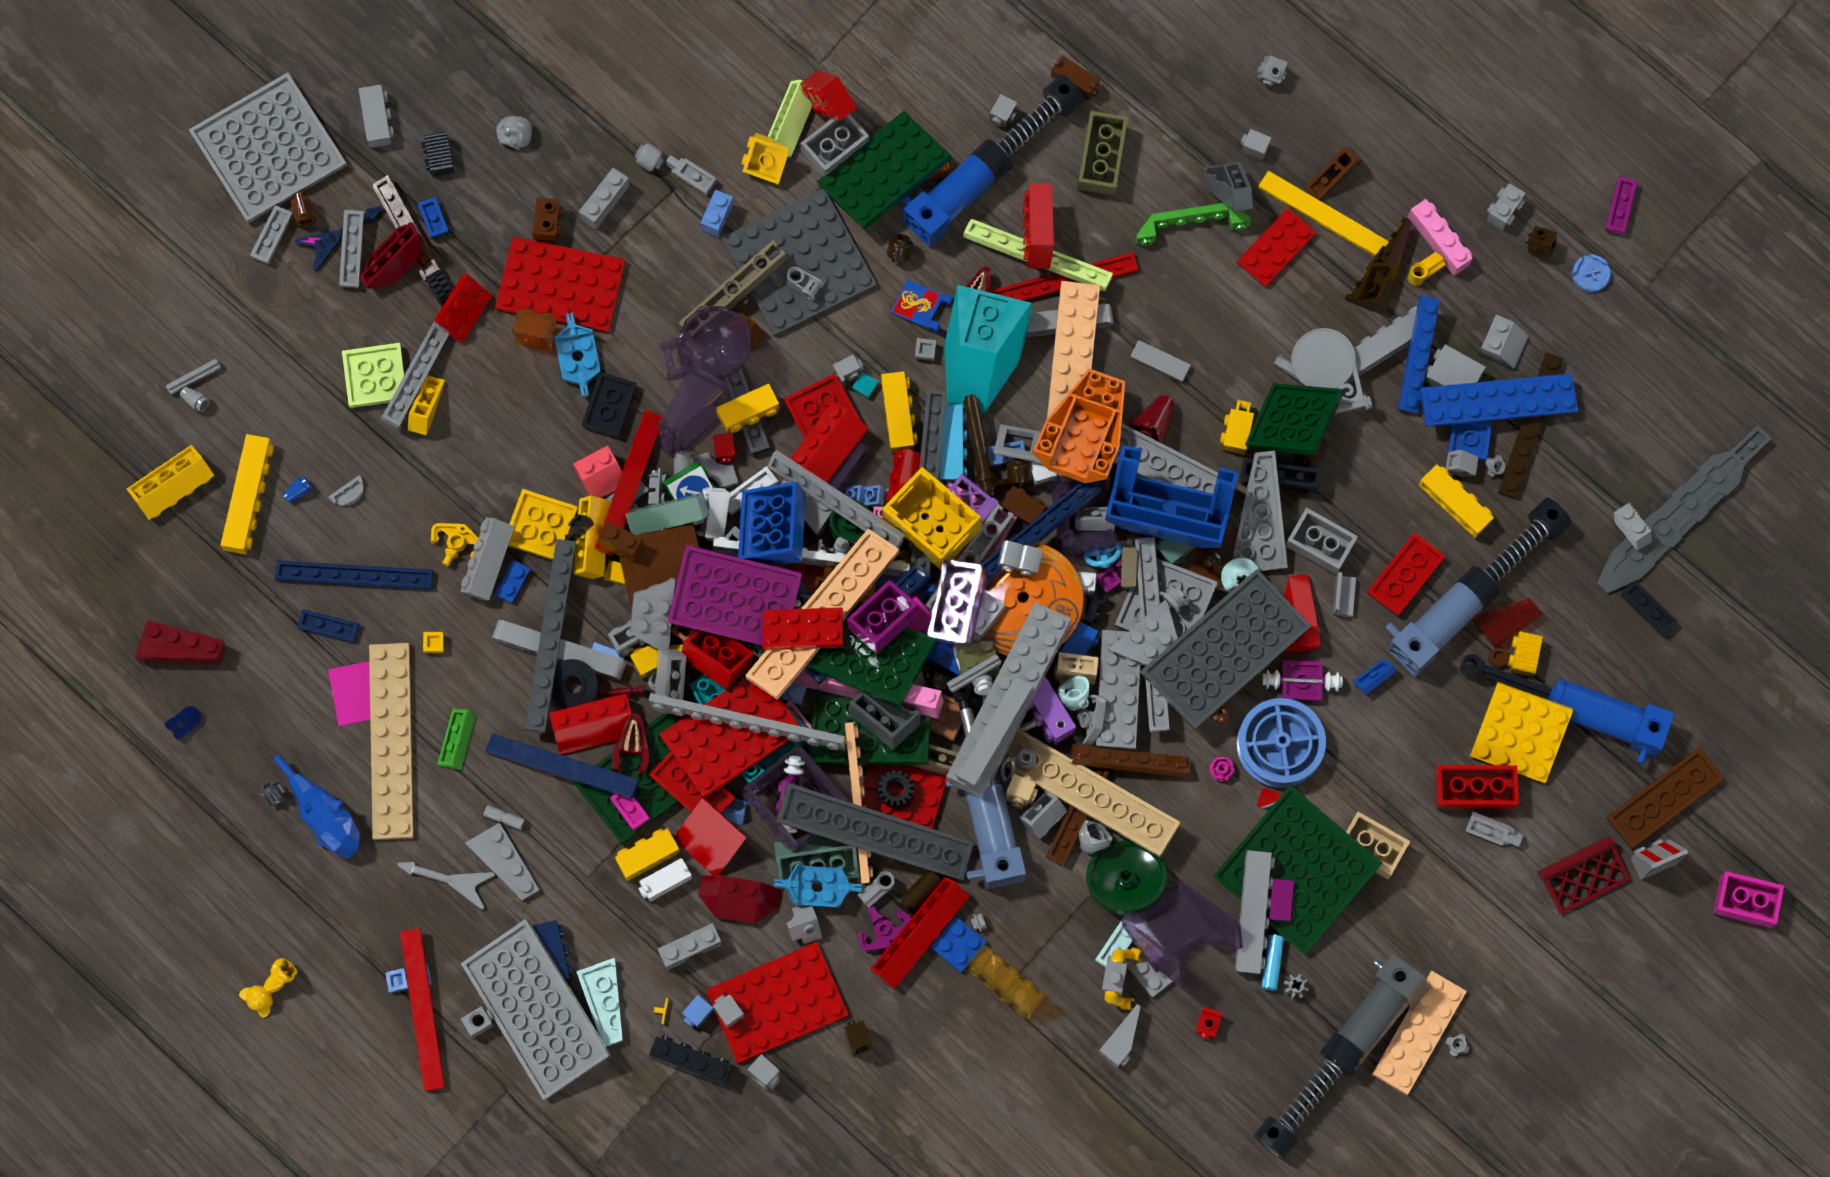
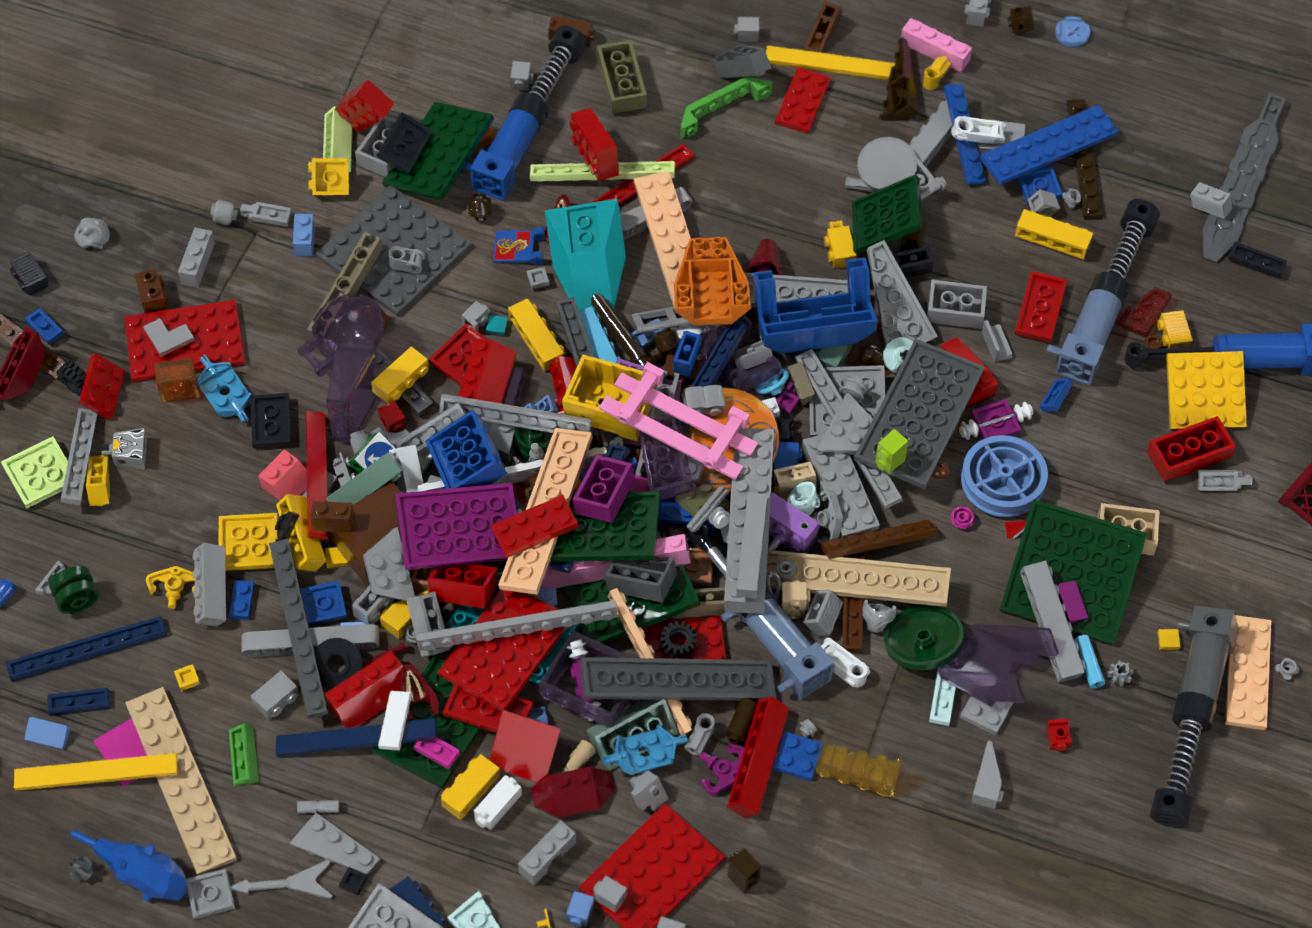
camera: 20 degrees left, 15 degrees down
(288, 647) = (46, 733): none -> medium blue slope
(318, 704) = (96, 772): none -> yellow tile
(361, 515) = (74, 589): none -> dark green wheel
(377, 861) = (210, 894): none -> light grey tile
(464, 383) = (128, 448): none -> light grey torso
(506, 693) = (275, 695): none -> light grey brick
(507, 901) = (353, 881): none -> black tile
(542, 282) = (167, 341): none -> light grey tile
(585, 617) = (323, 603): none -> blue plate
(601, 766) = (395, 720): none -> white tile
(755, 479) = (431, 427): none -> light grey plate
(757, 866) = (580, 756): none -> tan hinge
(851, 153) = (404, 143): none -> black plate
(1020, 609) = (726, 435): none -> bright pink fence
(1029, 497) = (687, 353): none -> blue brick
(1040, 871) = (846, 664): none -> white piece
(1115, 976) = (957, 724): torso -> none
(1160, 361) = (747, 218): light grey tile -> none
(1173, 685) = (891, 451): none -> lime brick
(1359, 970) = (1168, 639): none -> yellow tile
(1431, 360) = (978, 130): none -> white piece
(1503, 342) = (1028, 104): light grey slope -> none

